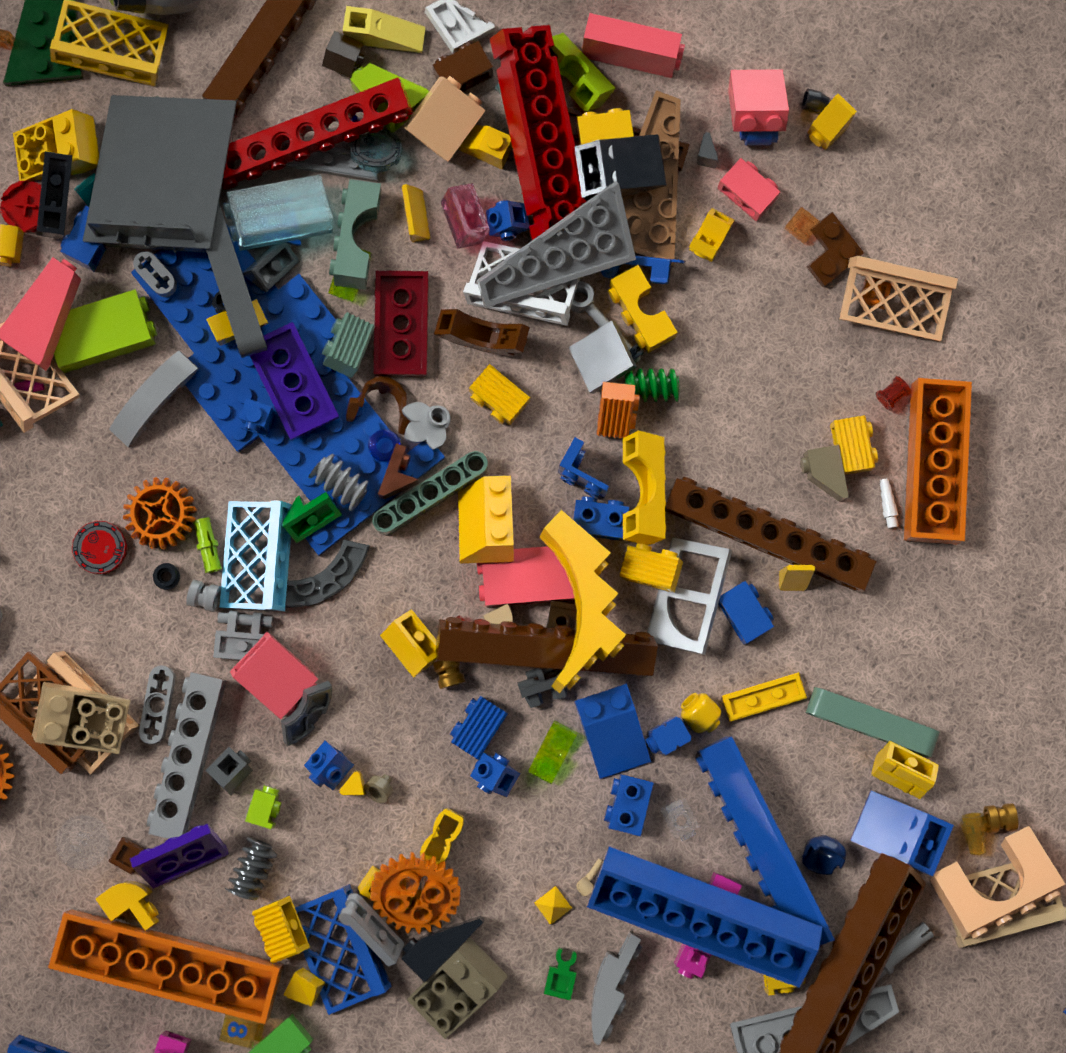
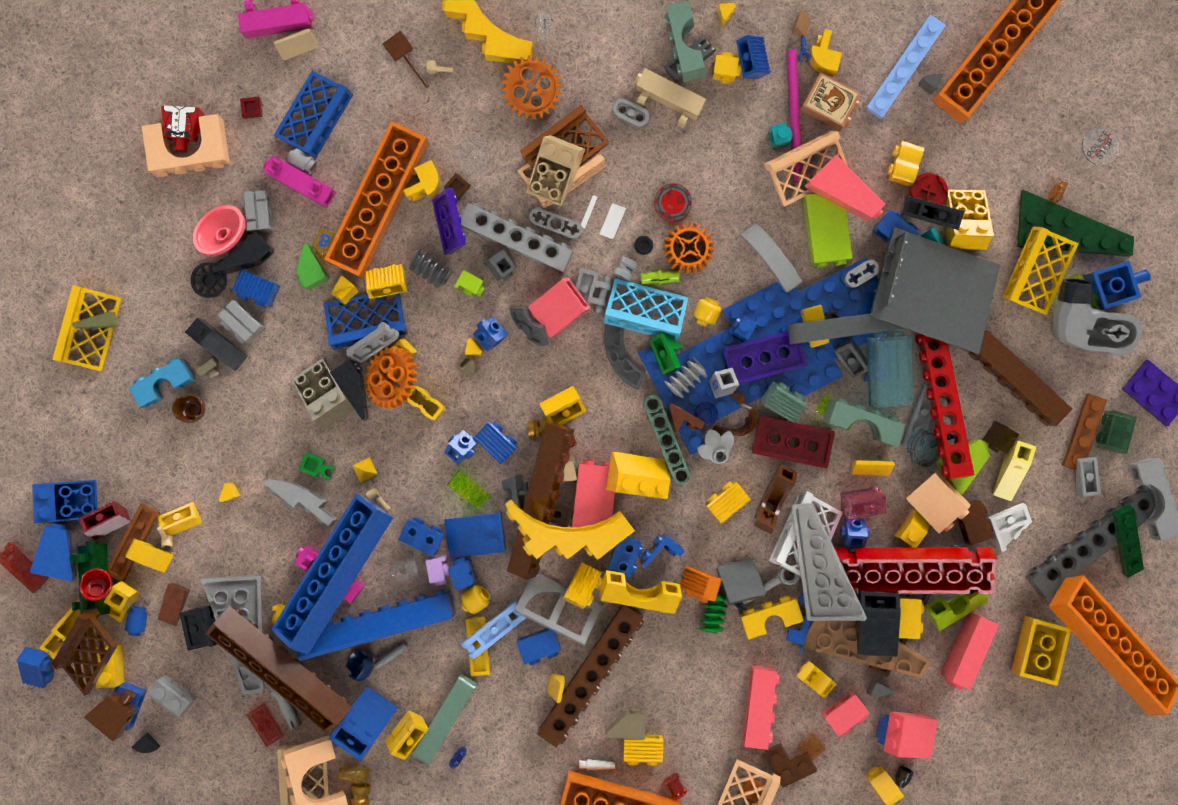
camera: 100 degrees right, 5 degrees up
(140, 627) = (612, 220): none -> white sticker
(243, 471) = (707, 311): none -> yellow head
(337, 429) = (723, 382): none -> light grey brick
(671, 773) = (437, 570): none -> lavender brick
(738, 679) = (492, 631): none -> light blue plate
(764, 301) = (760, 707): none -> coral brick
(802, 815) = (391, 655): none -> light grey animal
(920, 693) = (457, 757): none -> clear blue piece
(935, 973) = (265, 724): none -> clear red plate

